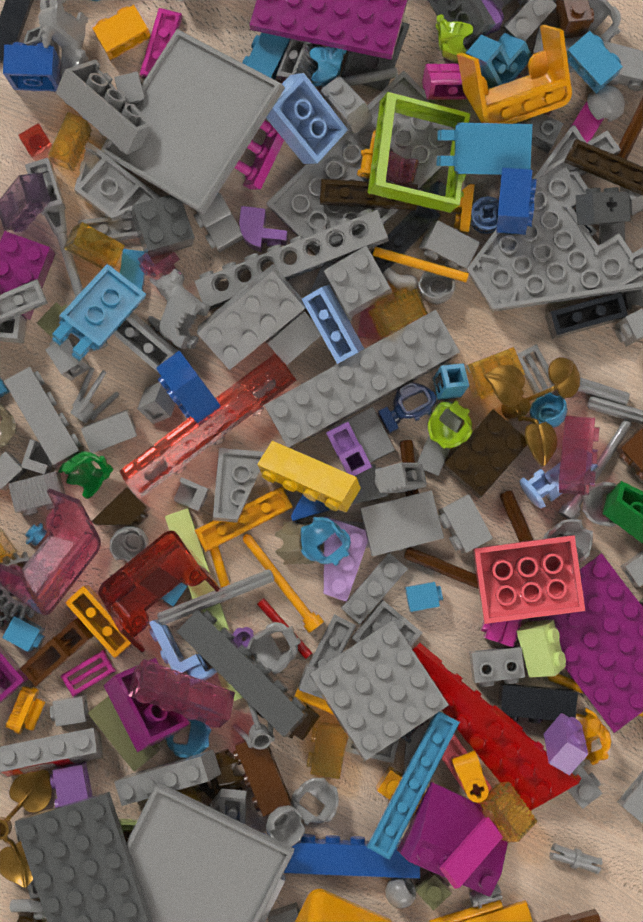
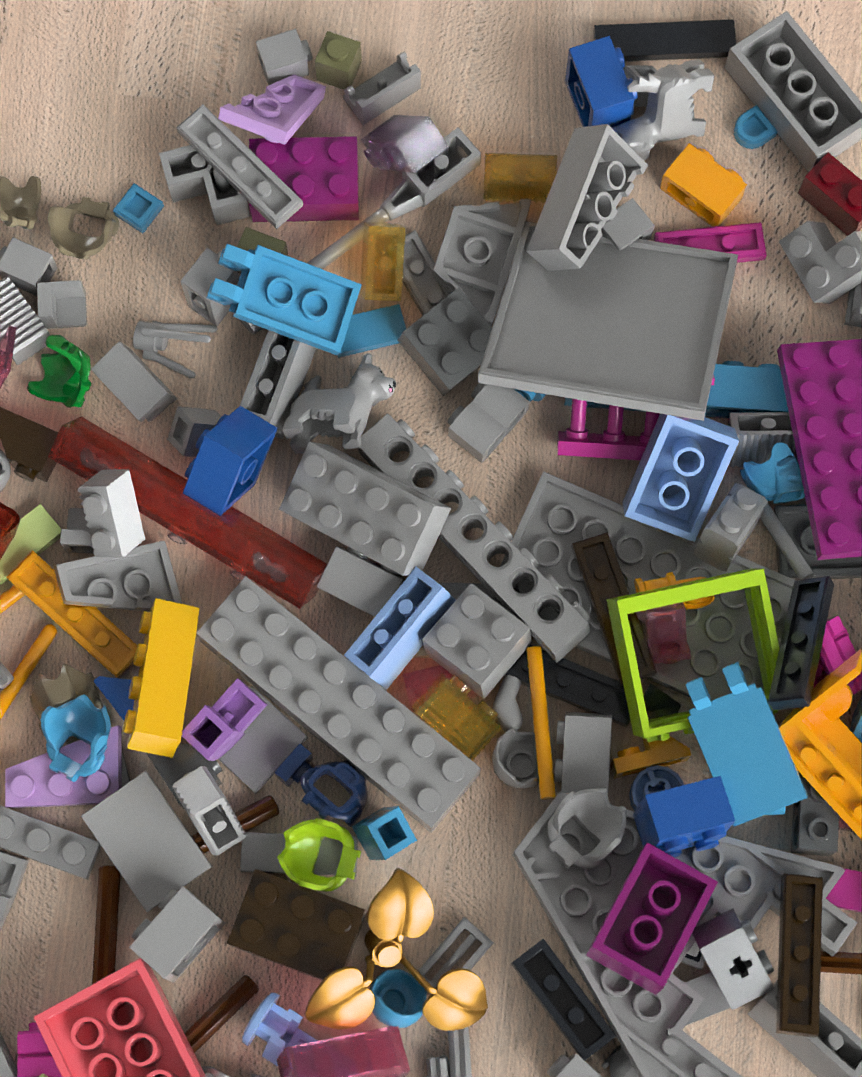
camera: 65 degrees right, 10 degrees down
(35, 140) = (503, 131): clear red plate -> none
(42, 416) = (119, 287): light grey brick -> none
(164, 266) = (394, 366): clear pink bracket -> none
(193, 471) = (112, 513): none -> light grey brick
(253, 229) = (498, 468): medium lavender brick -> none
(423, 596) = (51, 916): dark azure brick -> none
(438, 90) = (801, 643): none -> black tile
(476, 371) = (443, 896): clear yellow brick -> none
(495, 251) = (597, 817): none -> light grey helmet
(566, 242) = (651, 919): none -> magenta brick

